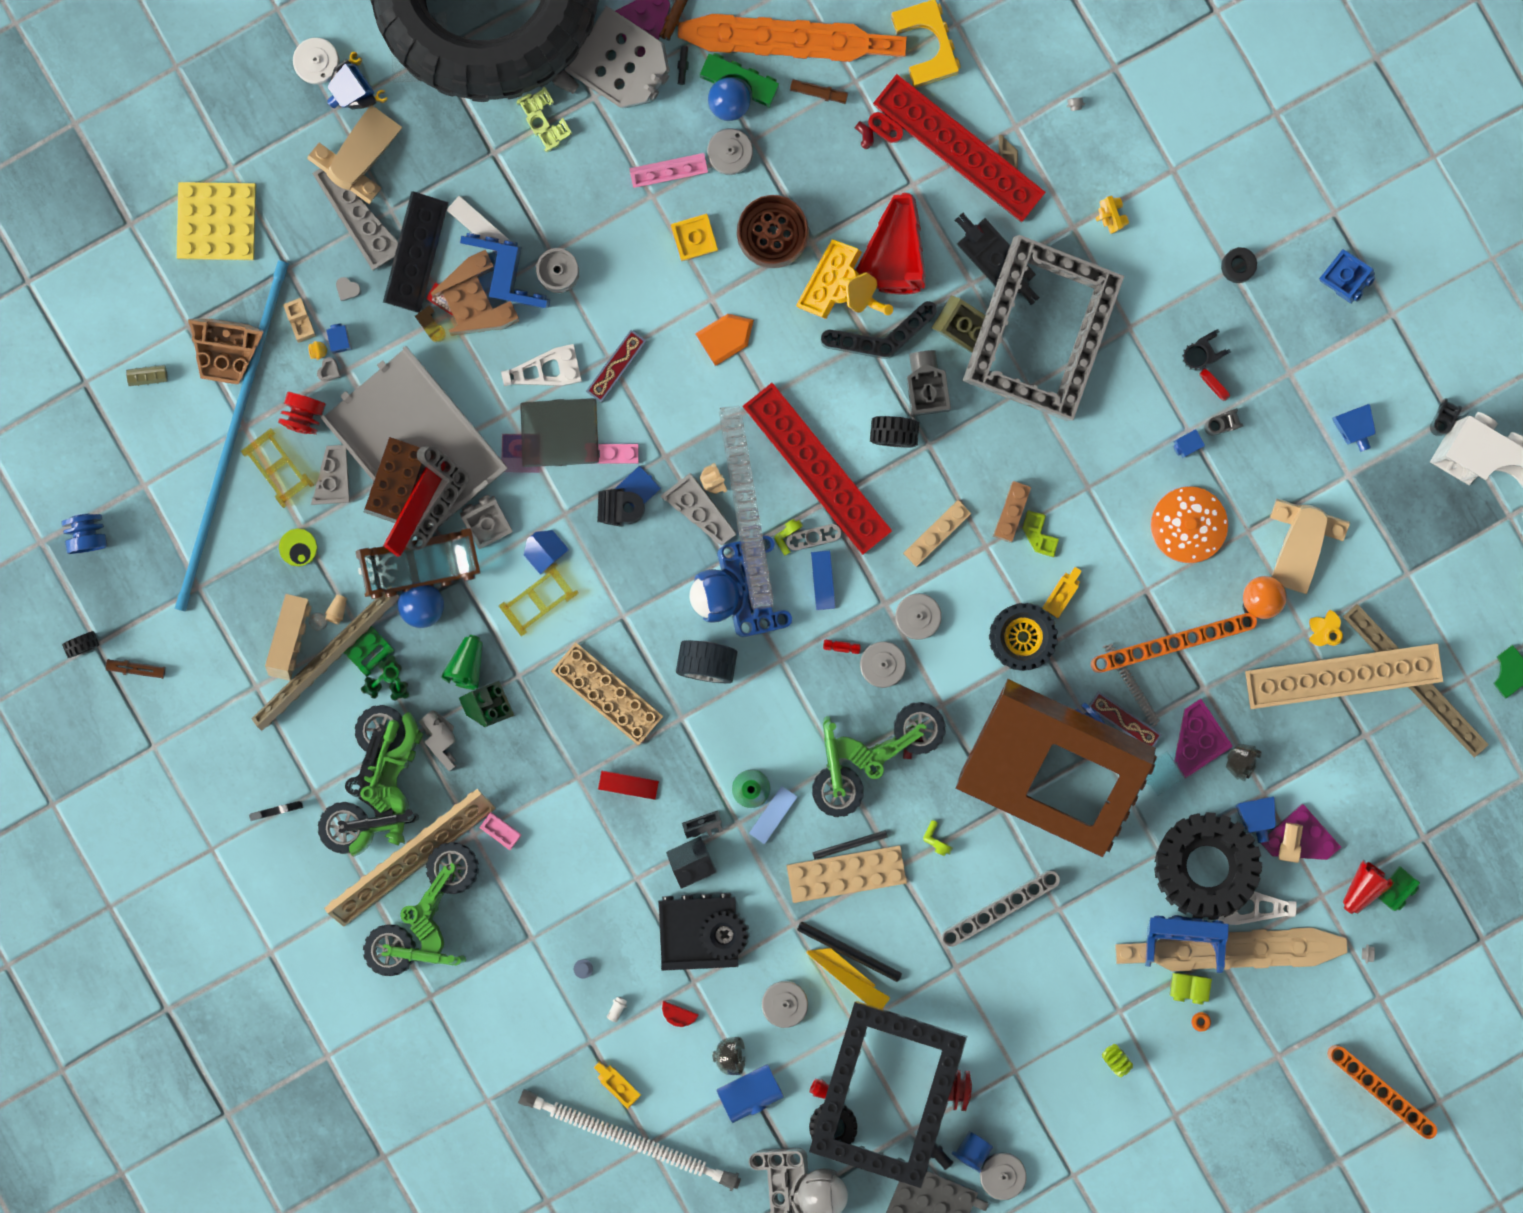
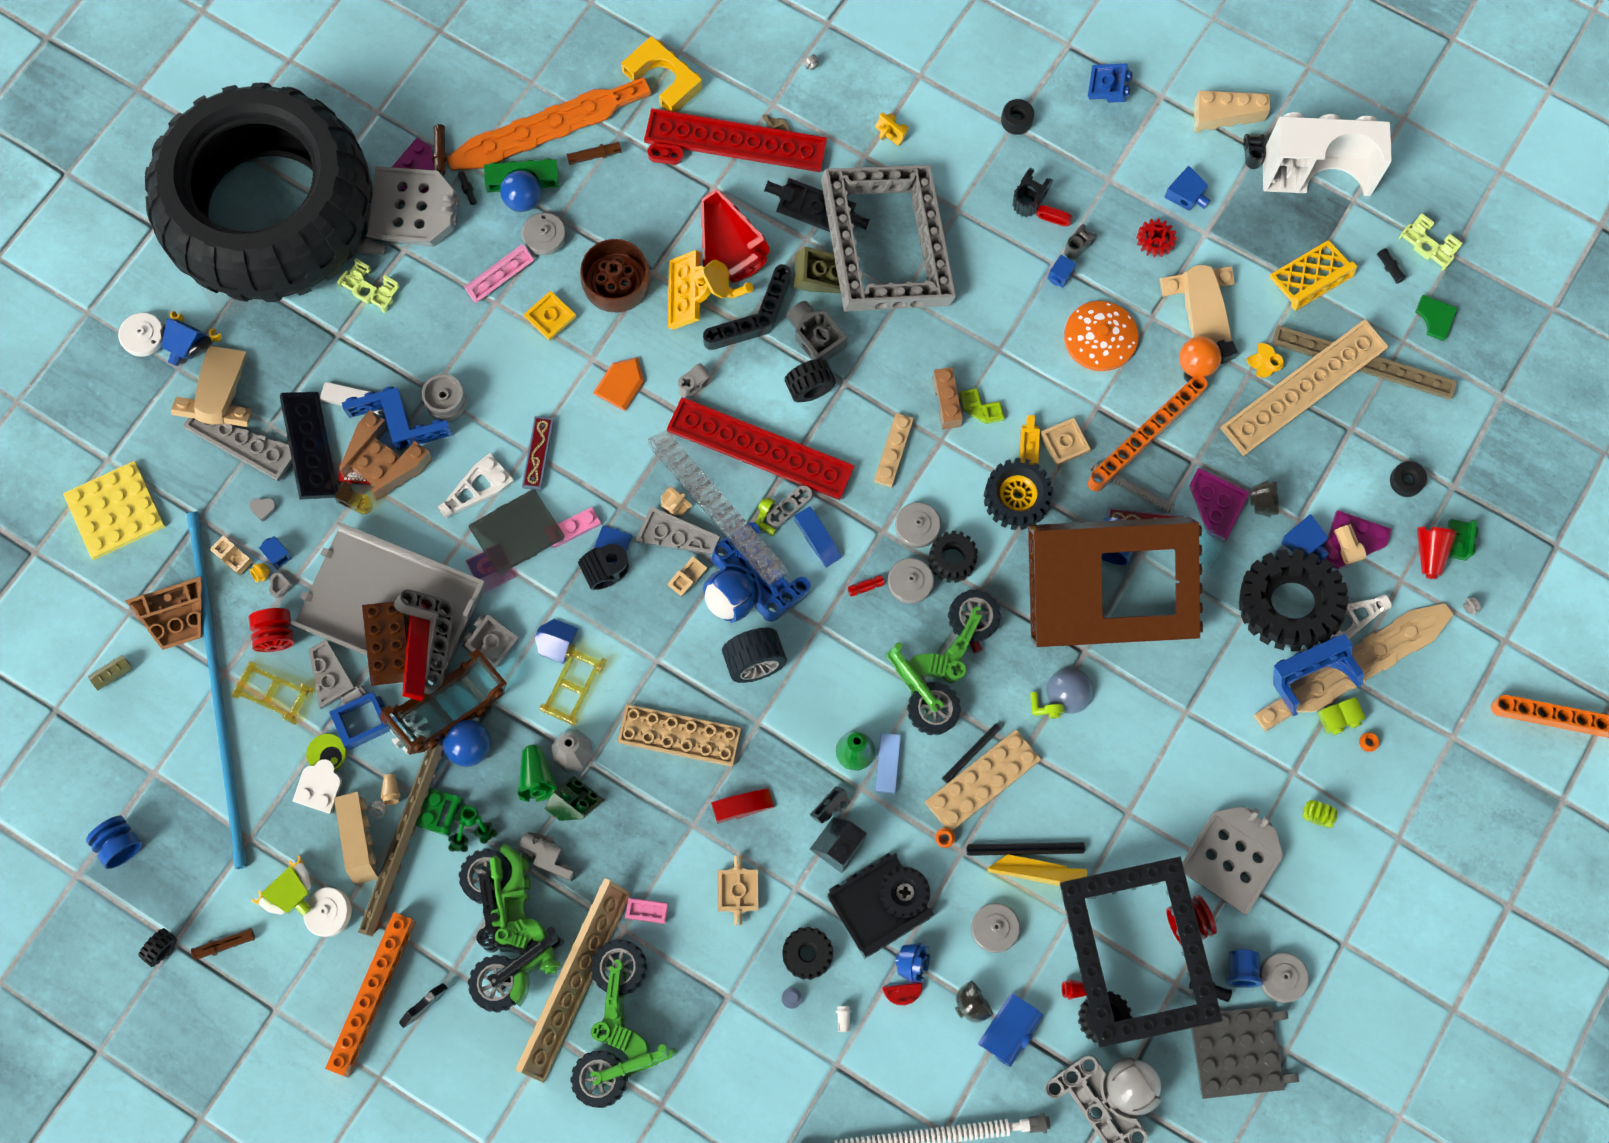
camera: 30 degrees left, 15 degrees down
(209, 654) = (287, 891): none -> lime torso
(234, 688) = (329, 912): none -> white wheel
(237, 778) = (370, 995): none -> orange brick
(277, 575) = (318, 786): none -> white plate
(321, 526) = (348, 742): none -> blue window
(345, 508) = (354, 694): none -> light grey pin
(517, 657) = (572, 750): none -> light grey cone
(586, 855) = (737, 890): none -> tan plate
(617, 1084) = (883, 1091): yellow hinge -> none
(630, 935) = (800, 967): none -> black tyre
(689, 554) = (687, 577): none -> tan slope
(699, 995) = (913, 962): none -> blue cone
(782, 909) = (945, 844): none -> orange plate
(796, 372) = (696, 378): none -> light grey piece
(867, 135) = (653, 166): dark red arm -> none
(944, 651) = (956, 542): none -> black tyre
(968, 835) = (1070, 689): none -> sand blue piece
(1007, 901) = (1132, 744): light grey beam -> none
(1051, 1050) = (1255, 836): none -> light grey hinge
(1095, 609) = (1065, 441): none -> tan plate
(1294, 602) = (1228, 350): none -> black piece
(1298, 465) = (1156, 239): none -> red gear
(1393, 818) = (1410, 468): none -> black tyre
(1423, 586) = (1324, 283): none -> yellow fence
(1444, 364) = (1221, 109): none -> tan wedge
(1501, 601) = (1391, 265): none -> black pin

